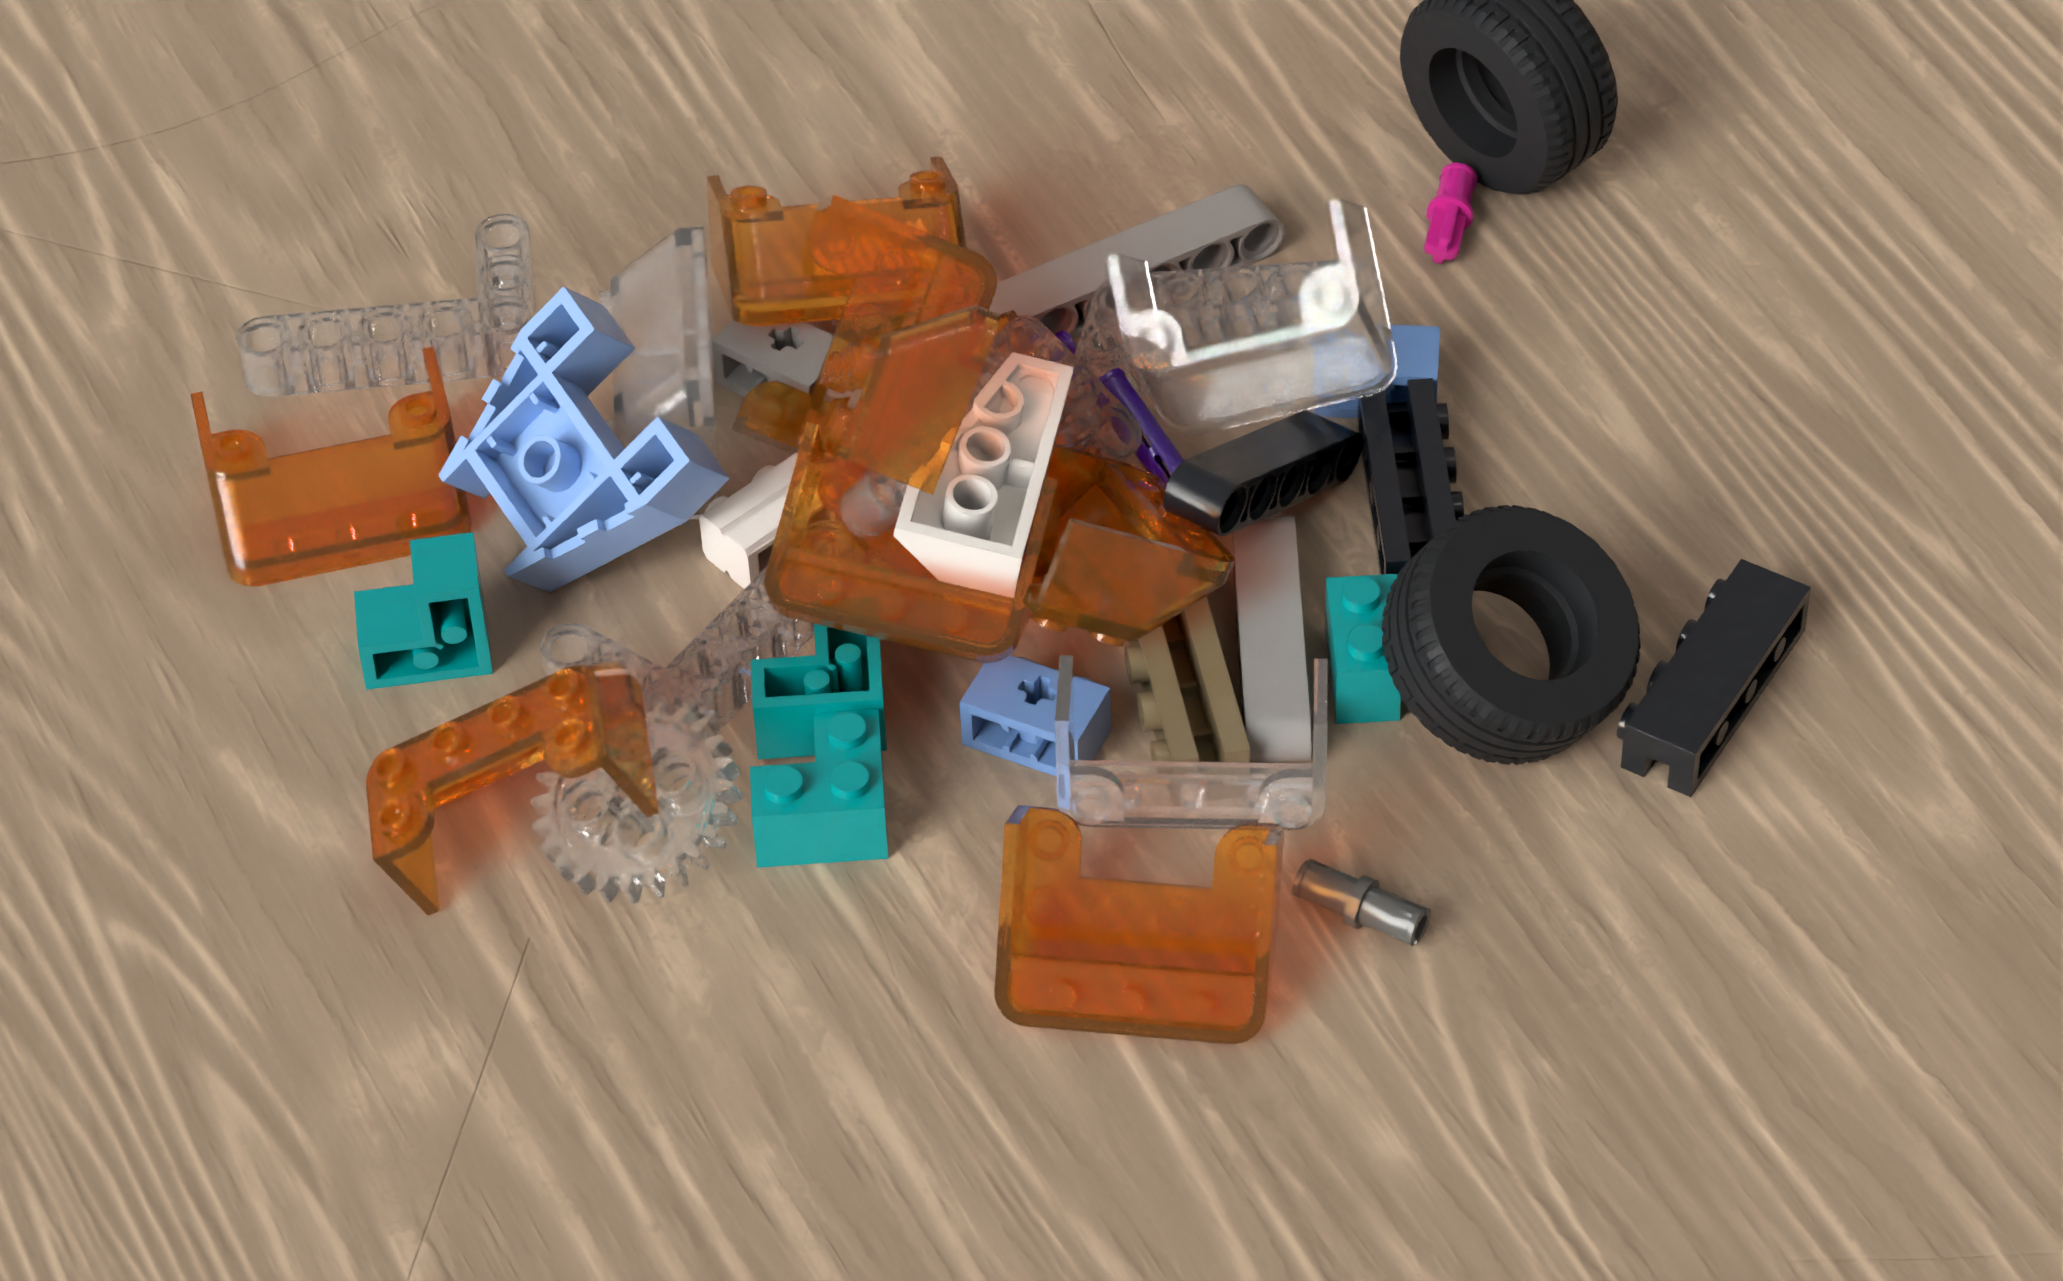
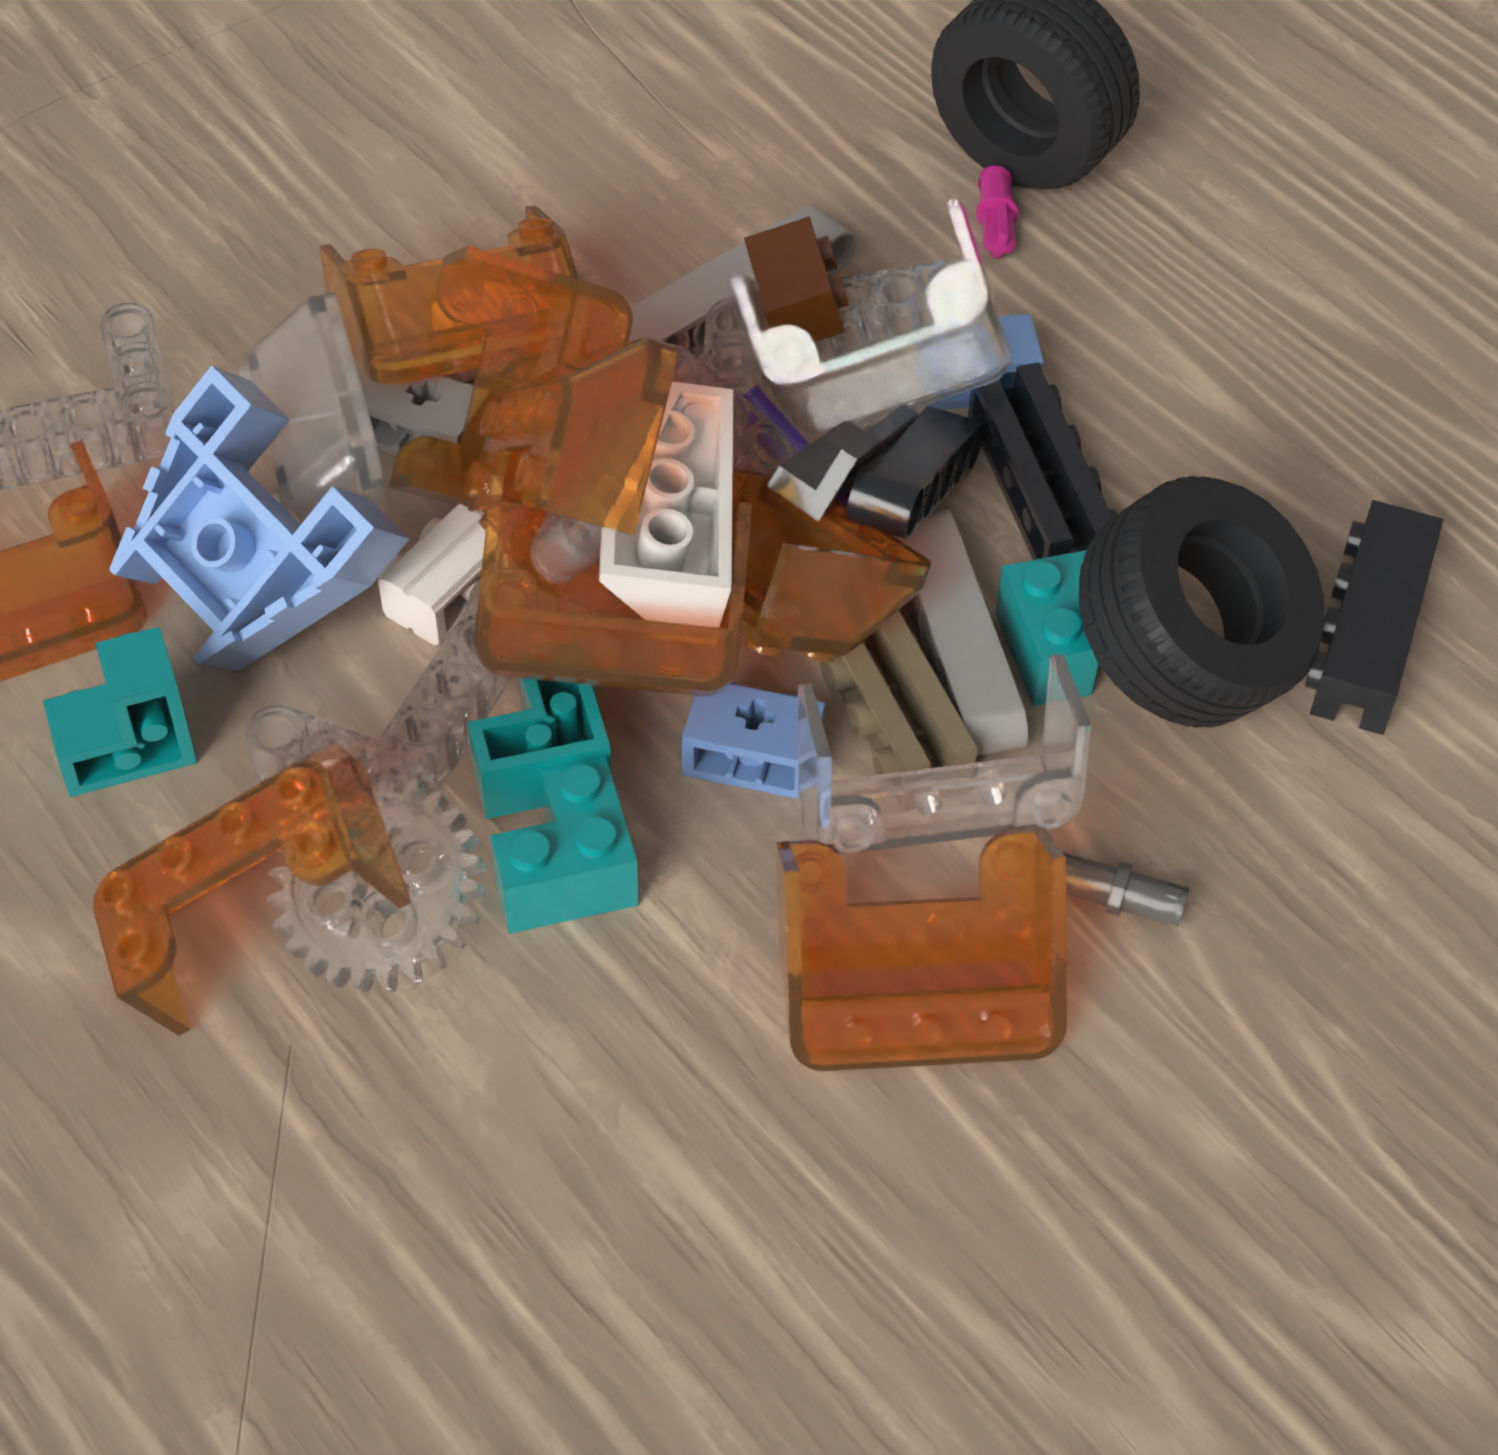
camera: 15 degrees left, 5 degrees up
(1143, 464) = (826, 469): none -> black fence
(1187, 264) = (795, 281): none -> reddish brown brick

